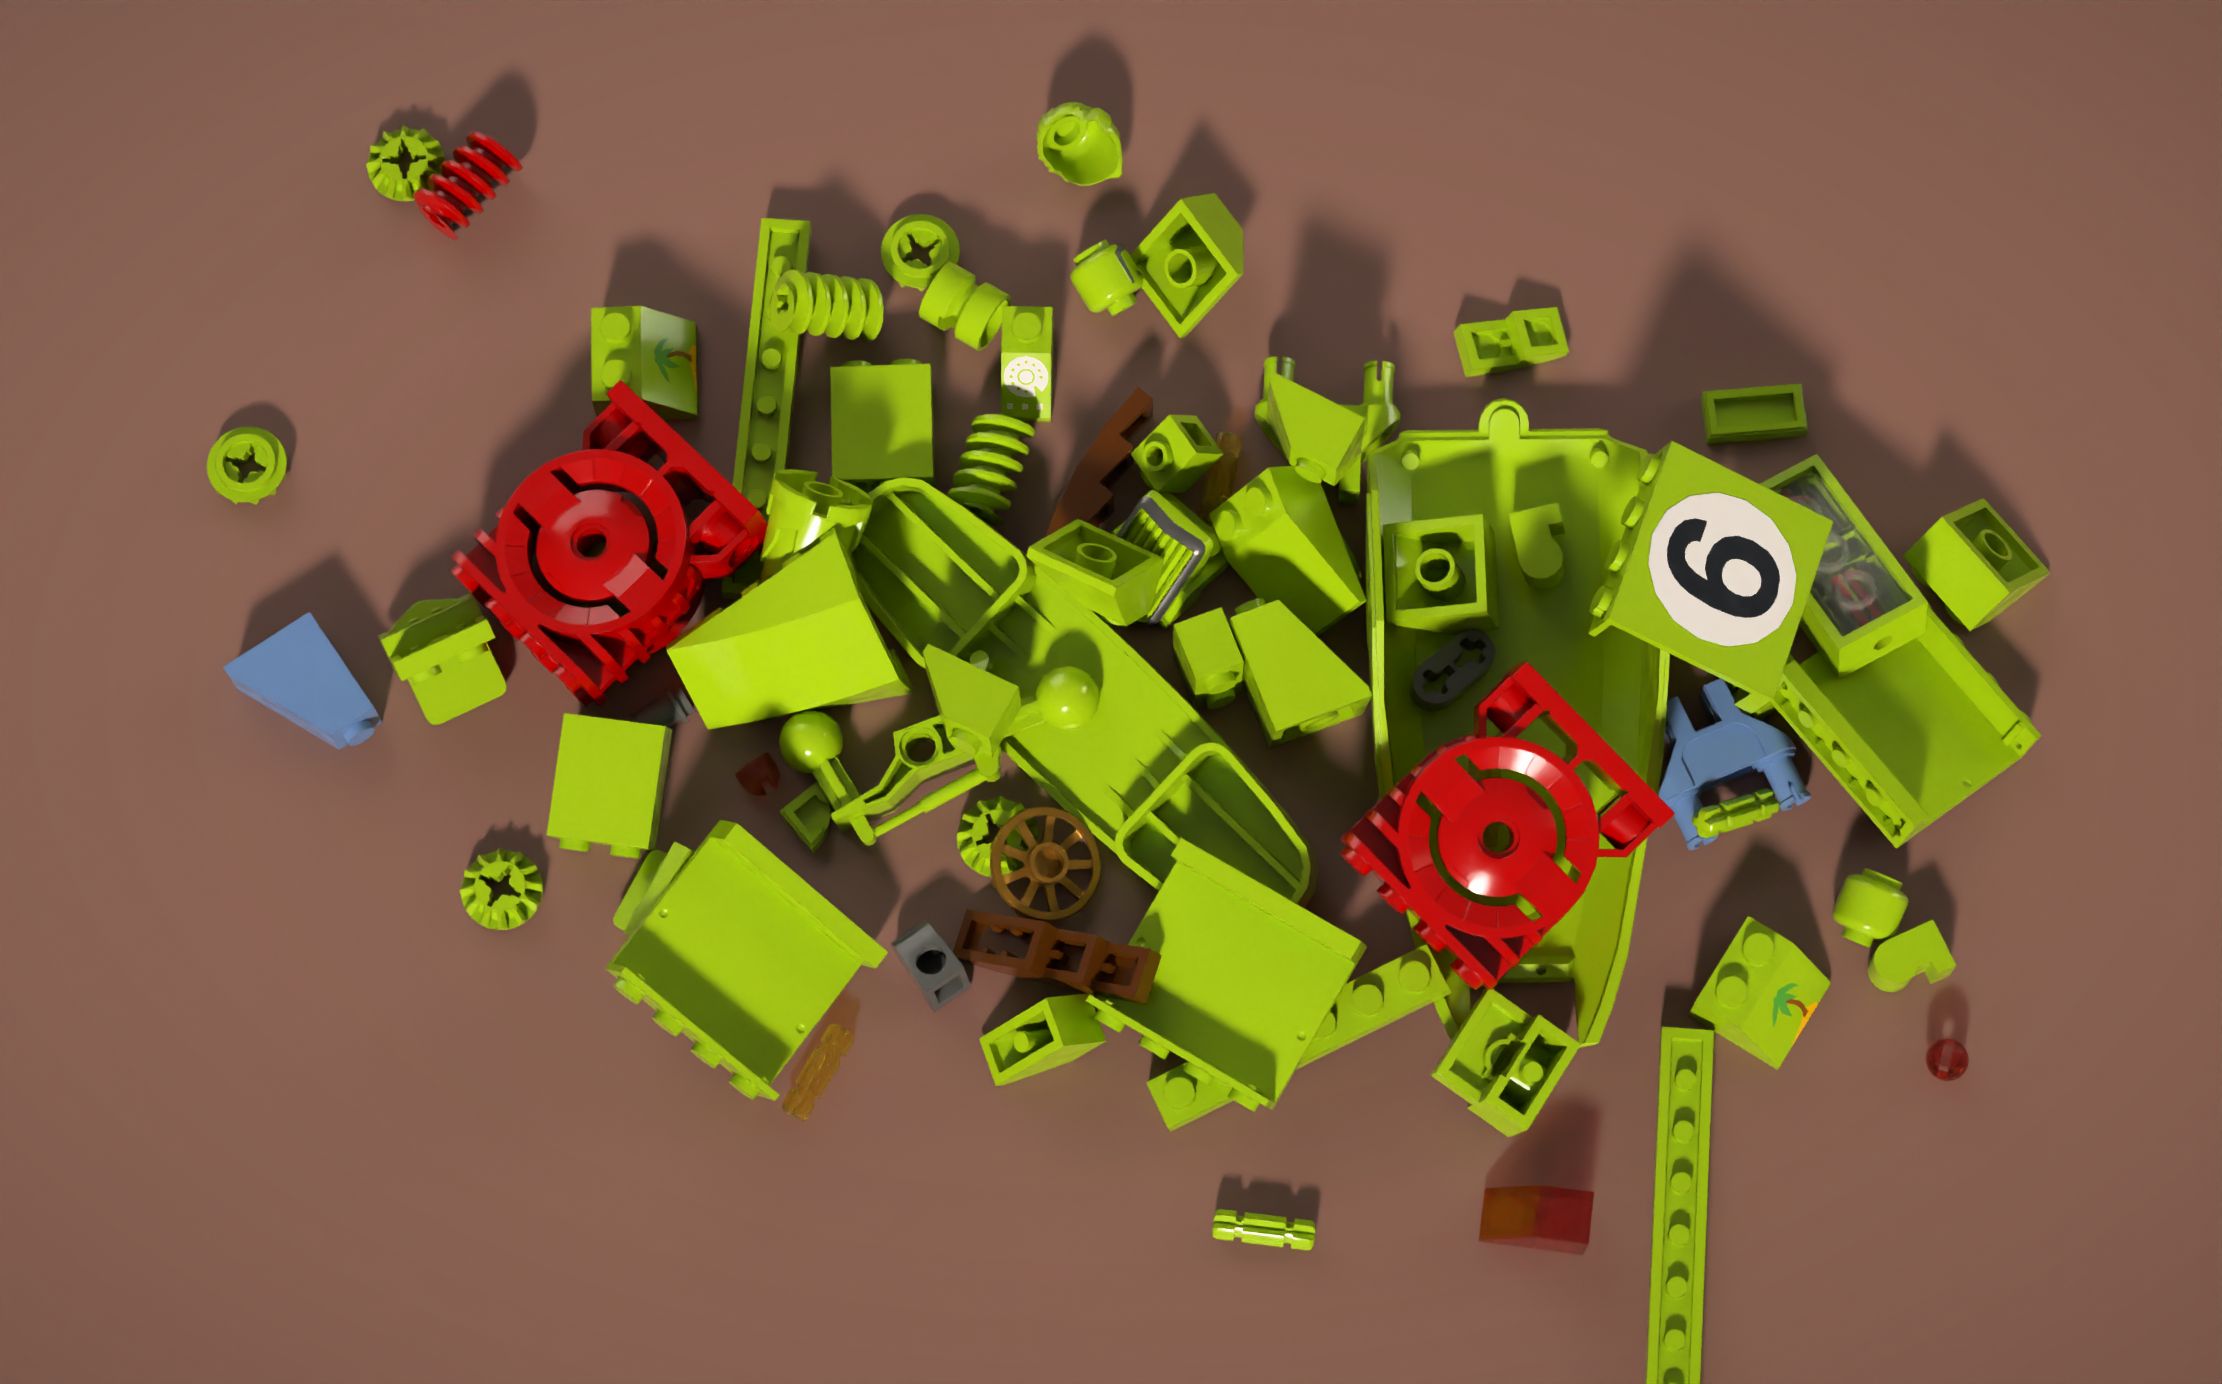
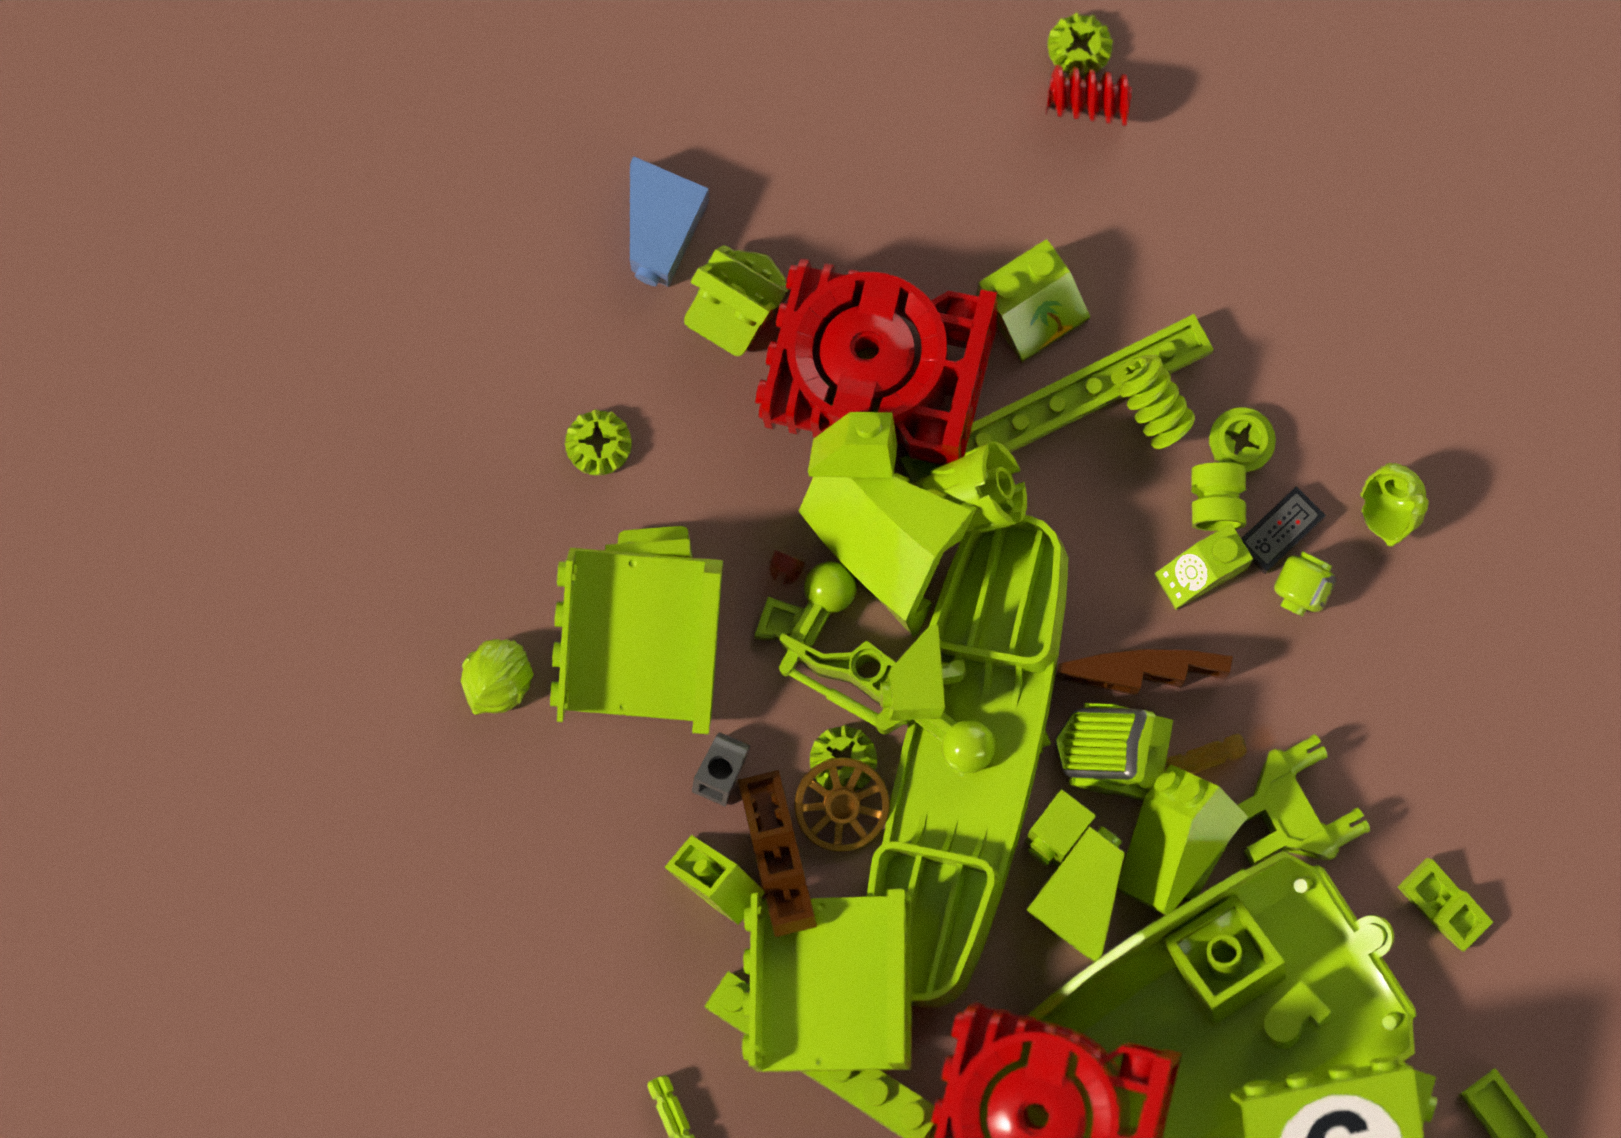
camera: 55 degrees right, 5 degrees up
(238, 447) = (802, 65): lime gear -> none
(609, 784) = (712, 468): lime brick -> none
(665, 710) = (787, 472): dark grey pin -> none
(684, 1140) = (496, 676): none -> lime hair
(688, 615) = (856, 447): none -> lime slope
(818, 1072) = (599, 738): clear yellow axle -> none
(882, 422) = (1092, 494): lime brick -> none
(987, 464) = (1109, 587): lime piece -> none
(1035, 266) = (1282, 529): none -> tile
(1100, 570) = (1073, 711): lime slope -> none
(1176, 454) = (1201, 714): lime brick -> none
(1191, 260) = (1357, 636): lime slope -> none
(1313, 431) = (1265, 806): lime slope -> none
(1444, 662) = (1165, 999): dark grey beam -> none

